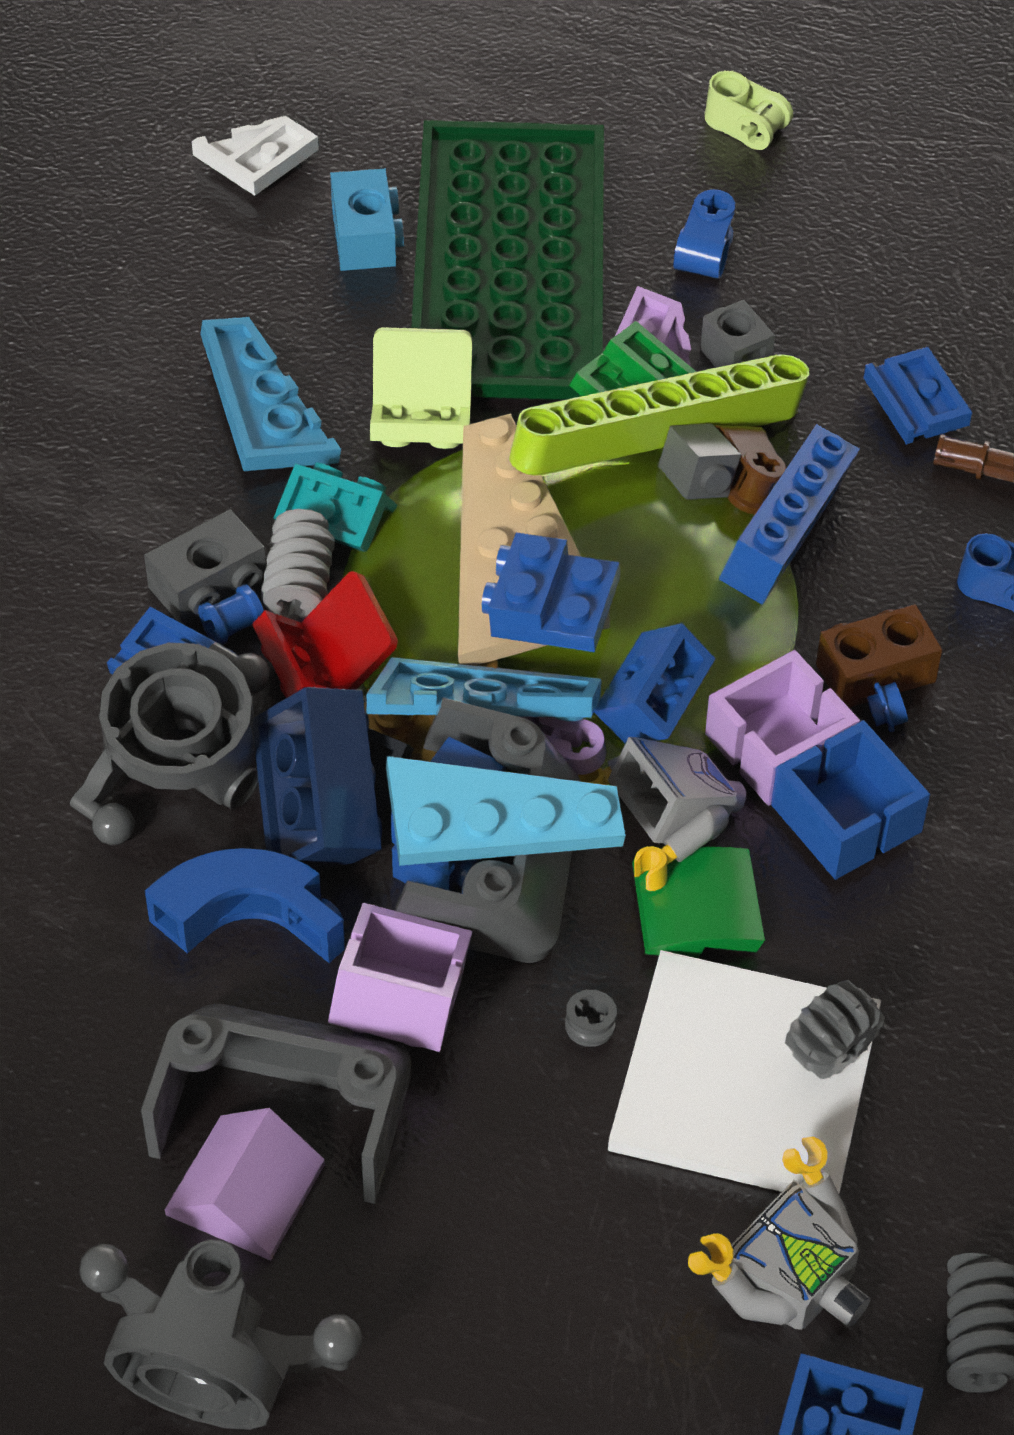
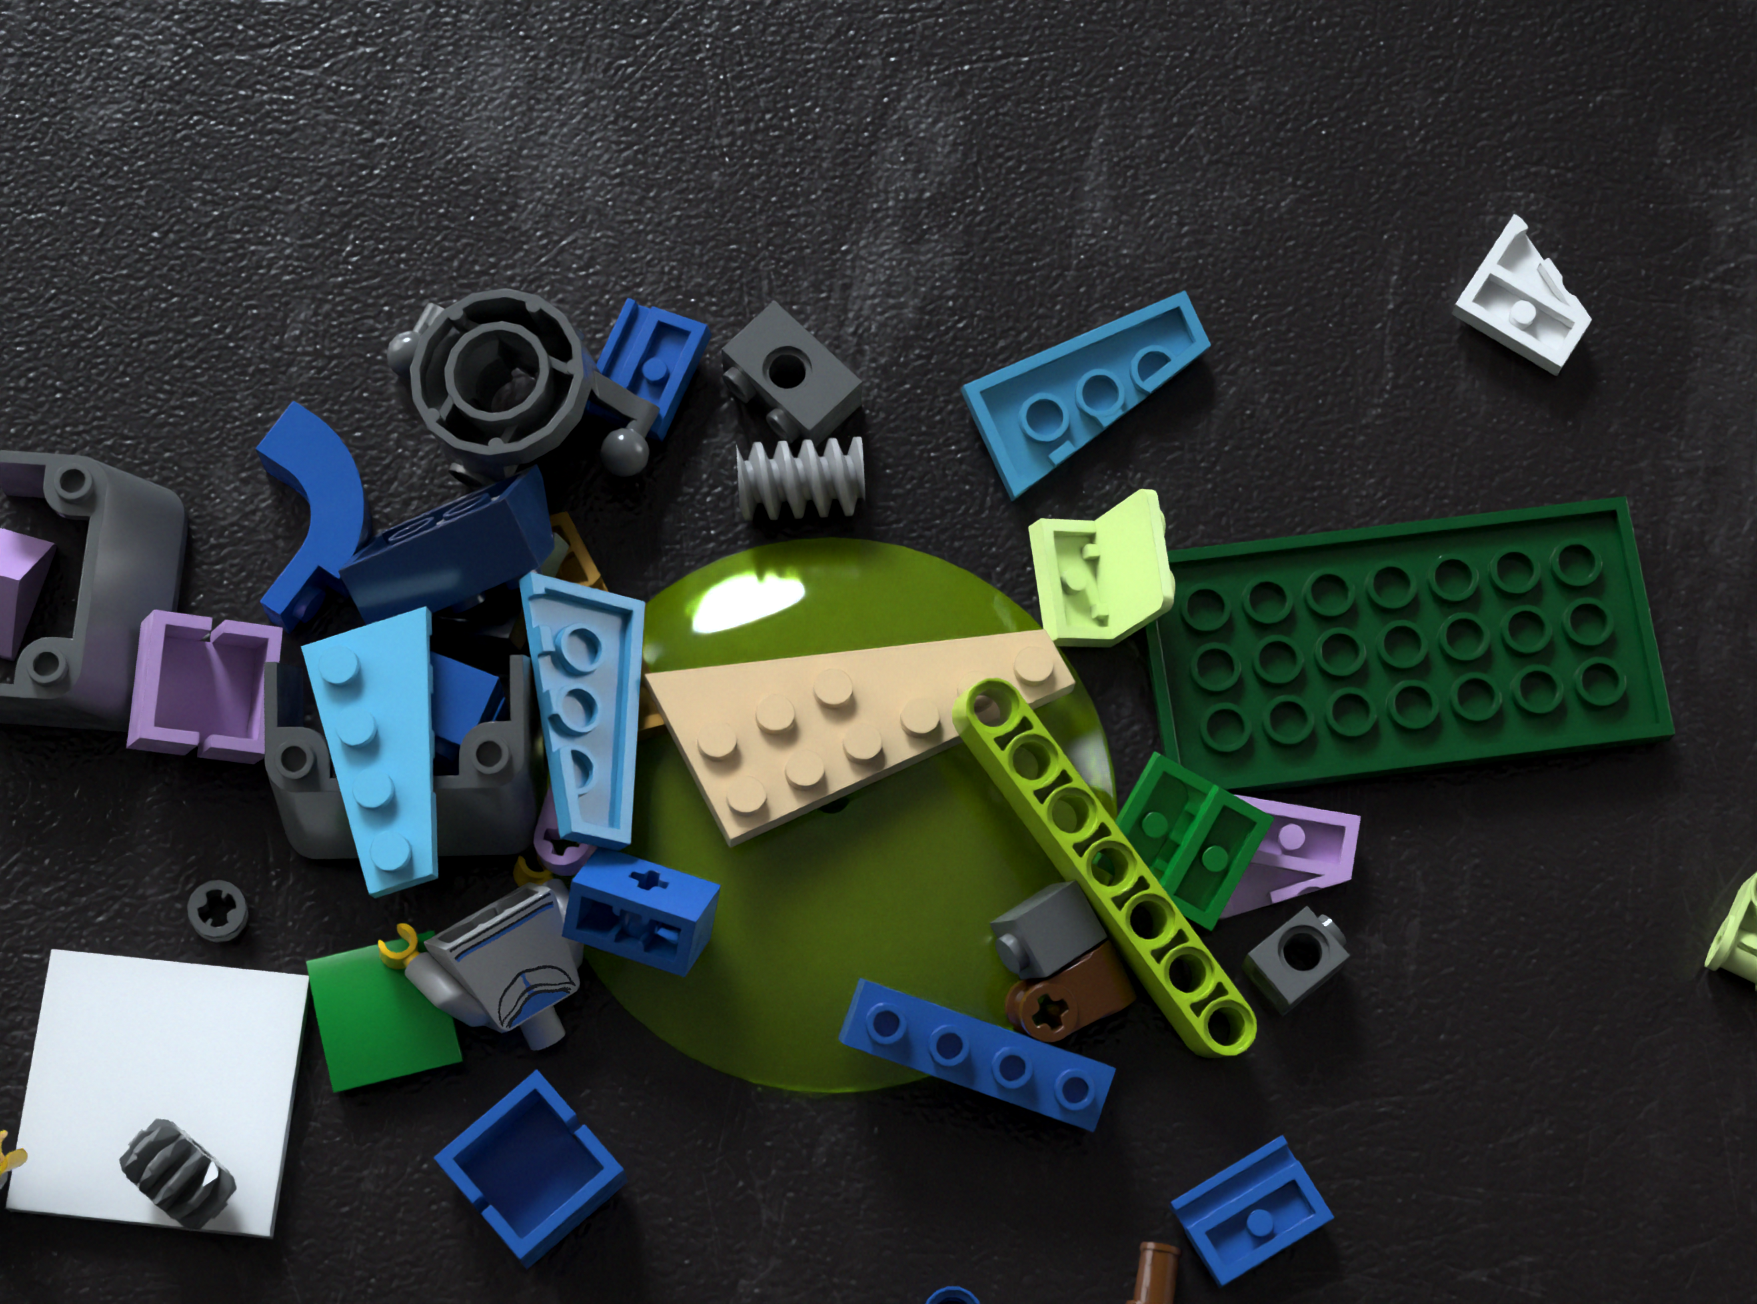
camera: 80 degrees right, 20 degrees up
(230, 614) = (725, 420): blue bush -> none
(334, 644) = (676, 526): red bracket -> none
(348, 506) = (915, 504): teal bracket -> none
(364, 219) = (1446, 429): dark azure brick -> none
(549, 594) = (725, 761): blue plate -> none
(707, 235) = (1478, 898): blue piece -> none
(772, 719) = (634, 1077): lavender piece -> none
(878, 649) = (767, 1197): reddish brown brick -> none
(887, 706) = (708, 1212): blue plate -> none

